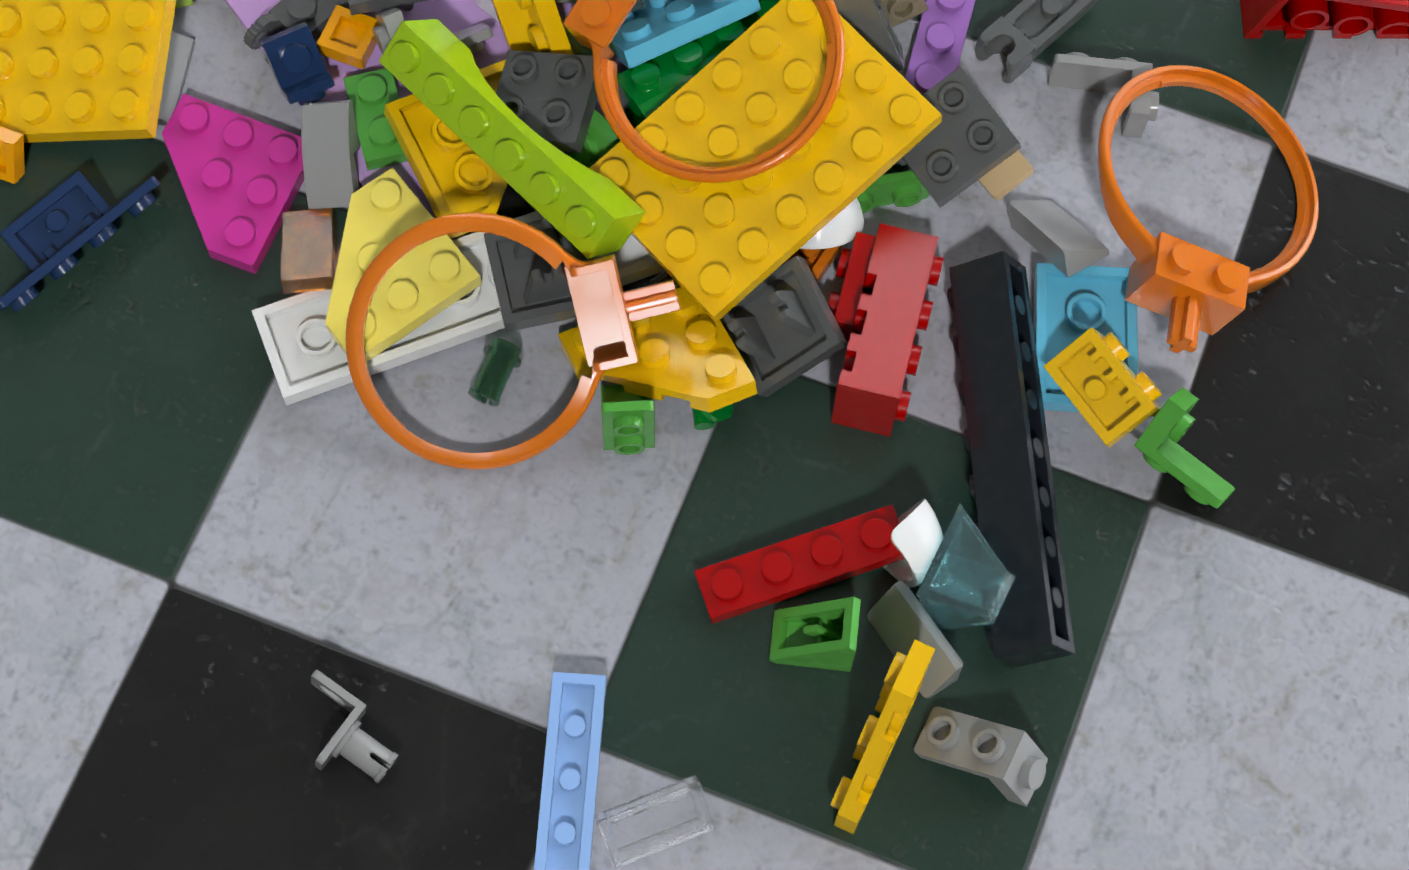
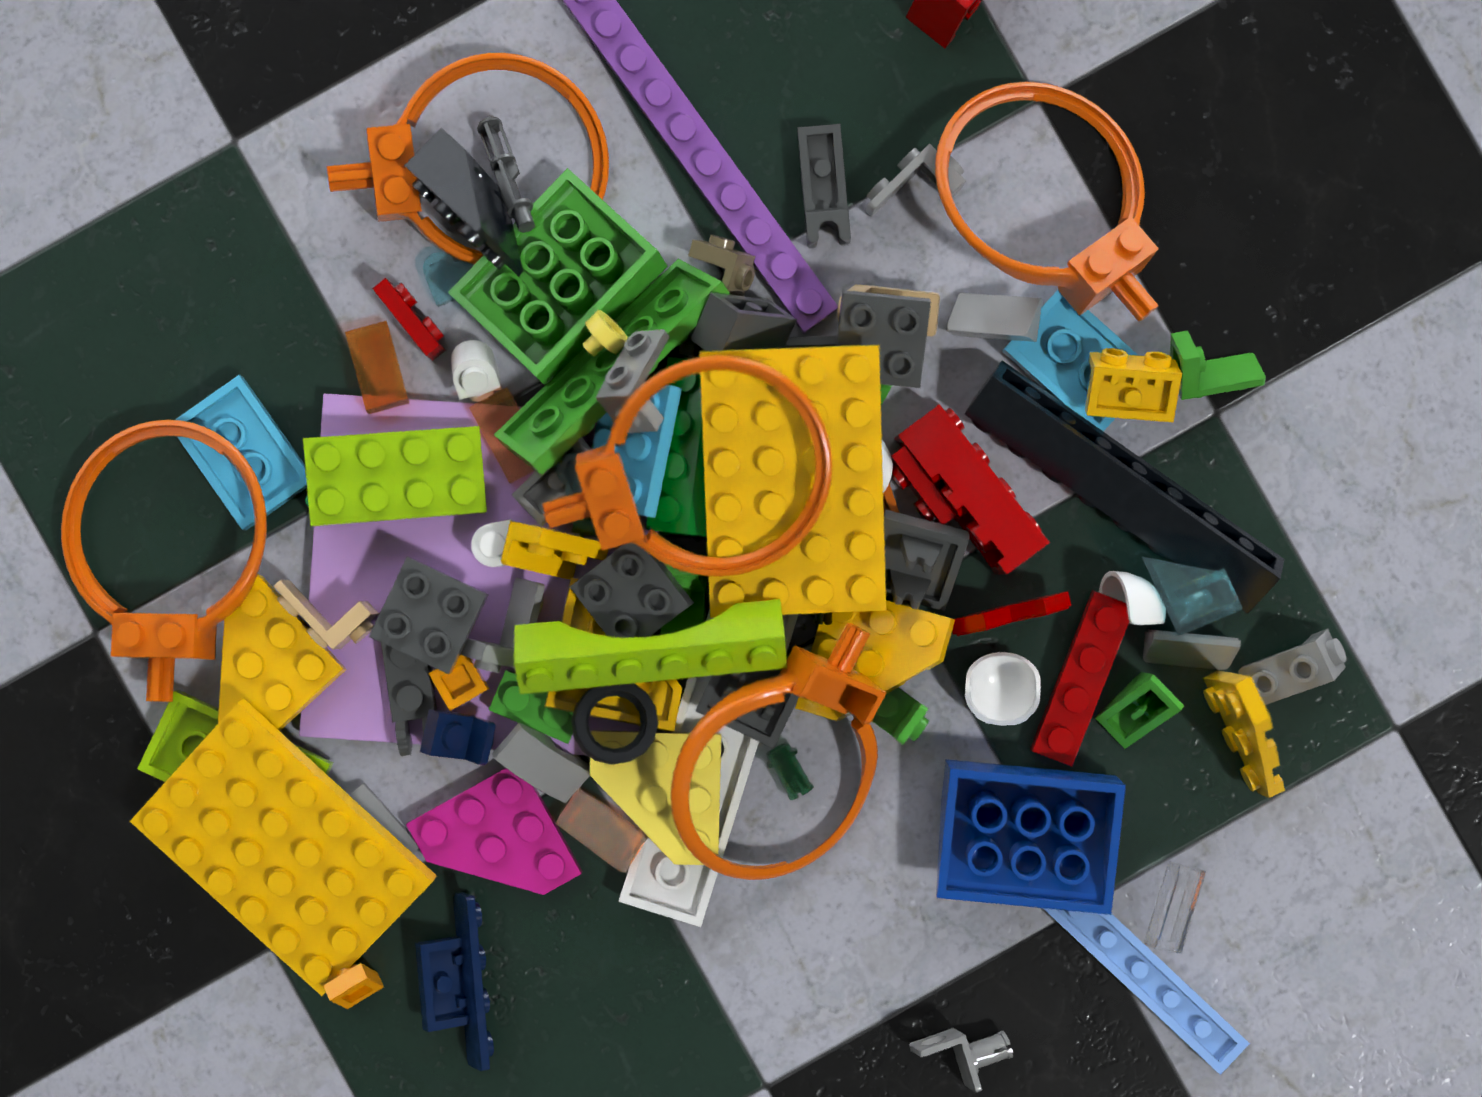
camera: 50 degrees left, 20 degrees up
(420, 128) = (640, 744): none -> black tyre
(610, 618) = (1029, 836): none -> blue slope
(726, 492) = (1002, 688): none -> white helmet
(828, 461) = (1011, 613): none -> red tile

